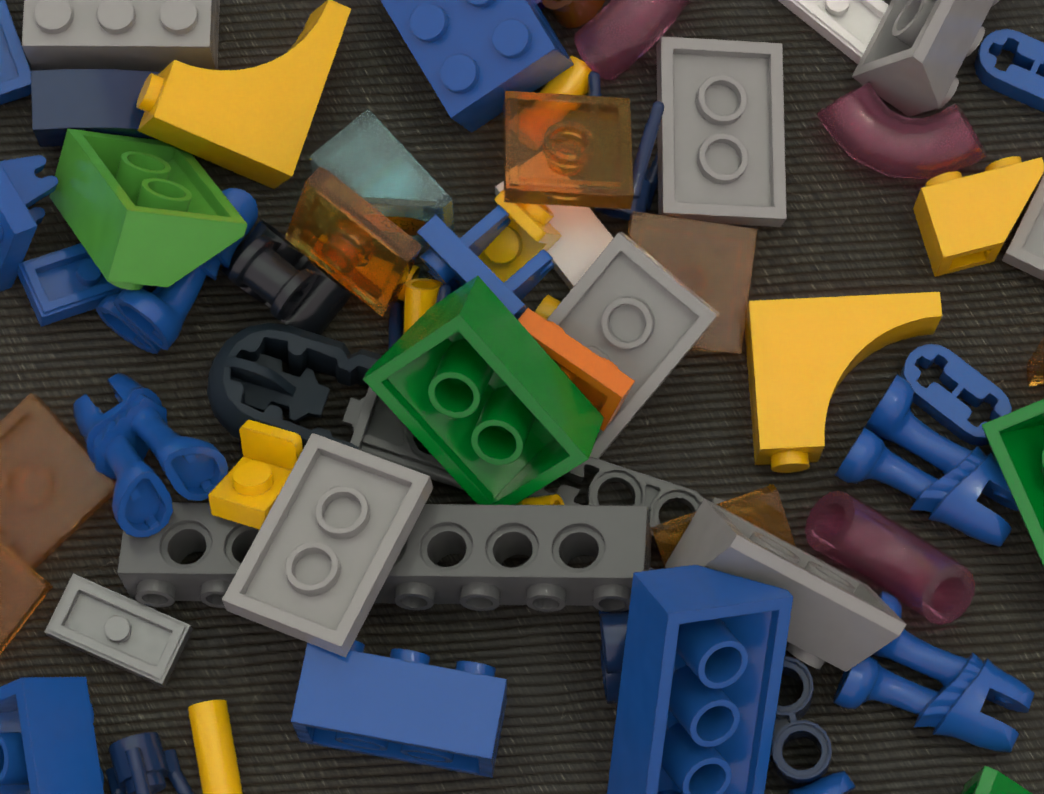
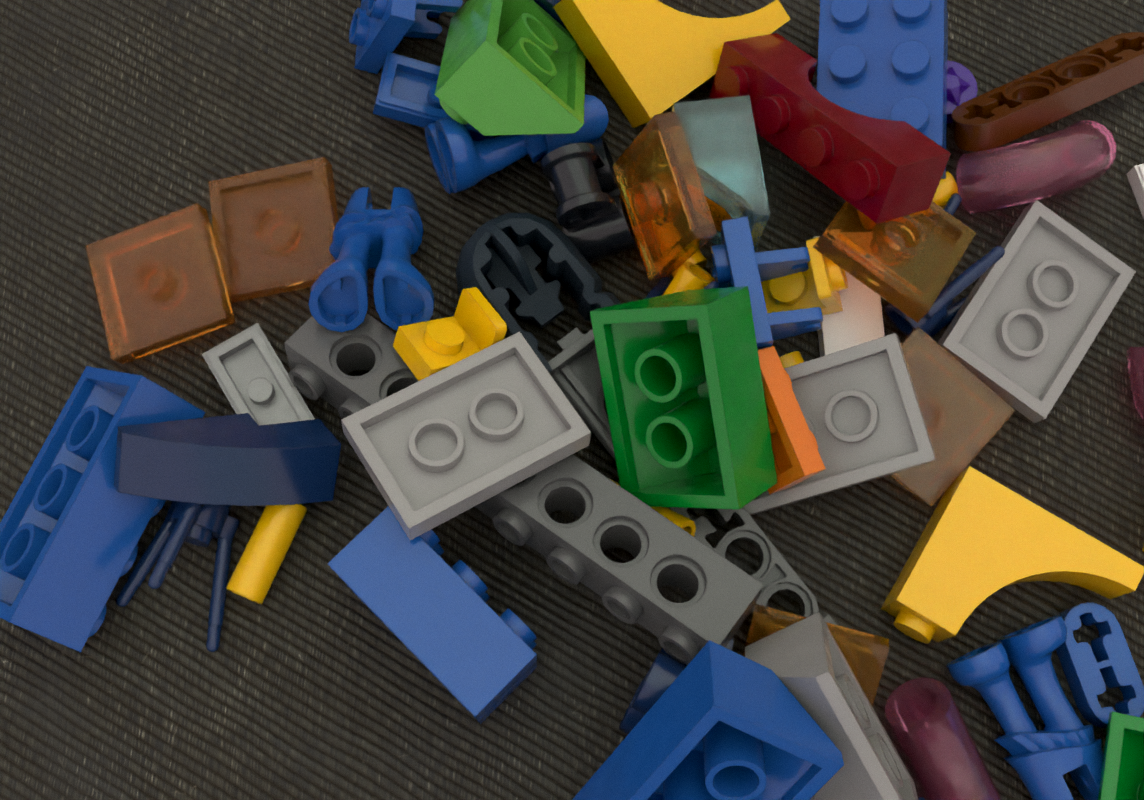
camera: 30 degrees right, 0 degrees up
(142, 700) = (228, 461): none -> dark blue slope
(505, 102) = (868, 161): none -> dark red arch

